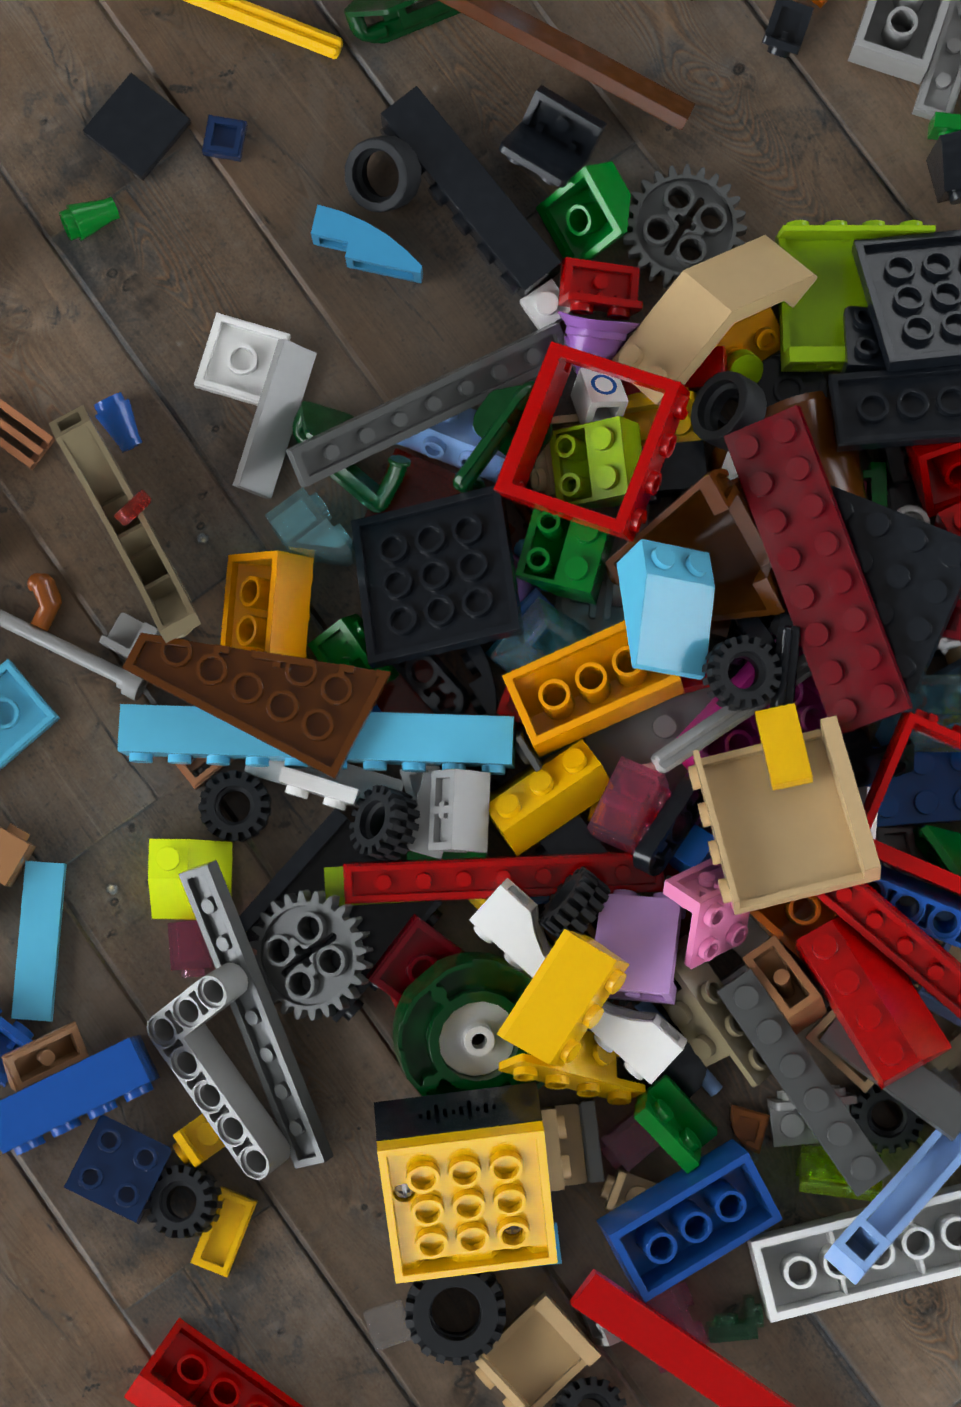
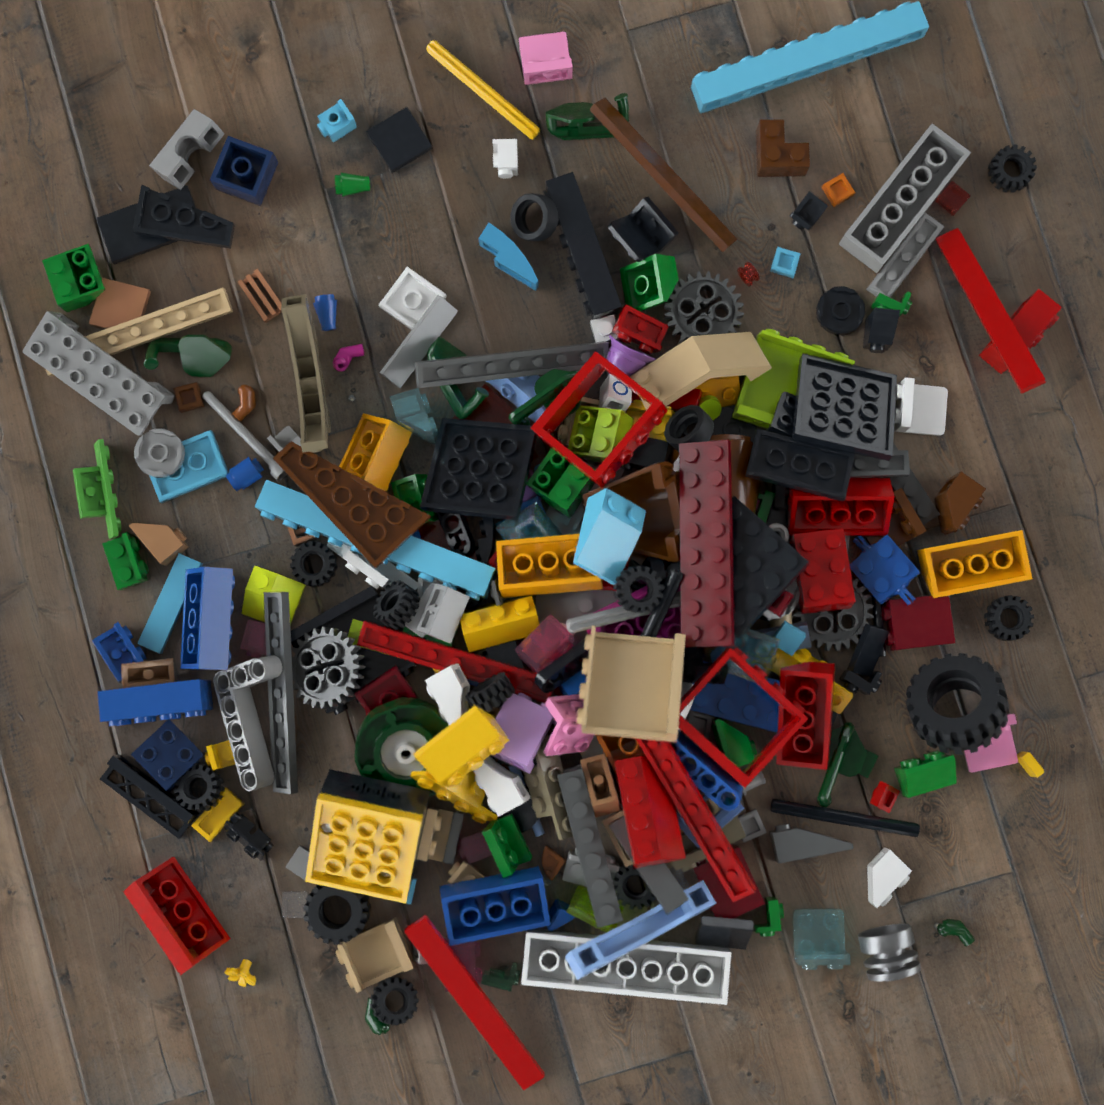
camera: 20 degrees right, 0 degrees up
(46, 132) = (341, 127): none -> medium azure brick
(83, 707) = (245, 473): none -> blue brick
(106, 943) = (207, 618): none -> brick
(113, 1228) = (152, 791): none -> black fence
(133, 507) = (313, 365): clear red tile -> none
(170, 478) = (345, 356): none -> dark pink arm
(224, 138) = (449, 164): dark blue tile -> none
(293, 1257) = (254, 843): none -> black hinge
(307, 98) = (505, 157): none -> white brick
(375, 1259) = (299, 862): none -> light grey tile
(730, 150) = (748, 274): none -> clear red bush
(778, 114) = (785, 262): none -> medium azure tile
(783, 746) = (647, 642): yellow tile -> none
(789, 1199) = (558, 914): none -> blue slope
(885, 158) = (840, 310): none -> black tile

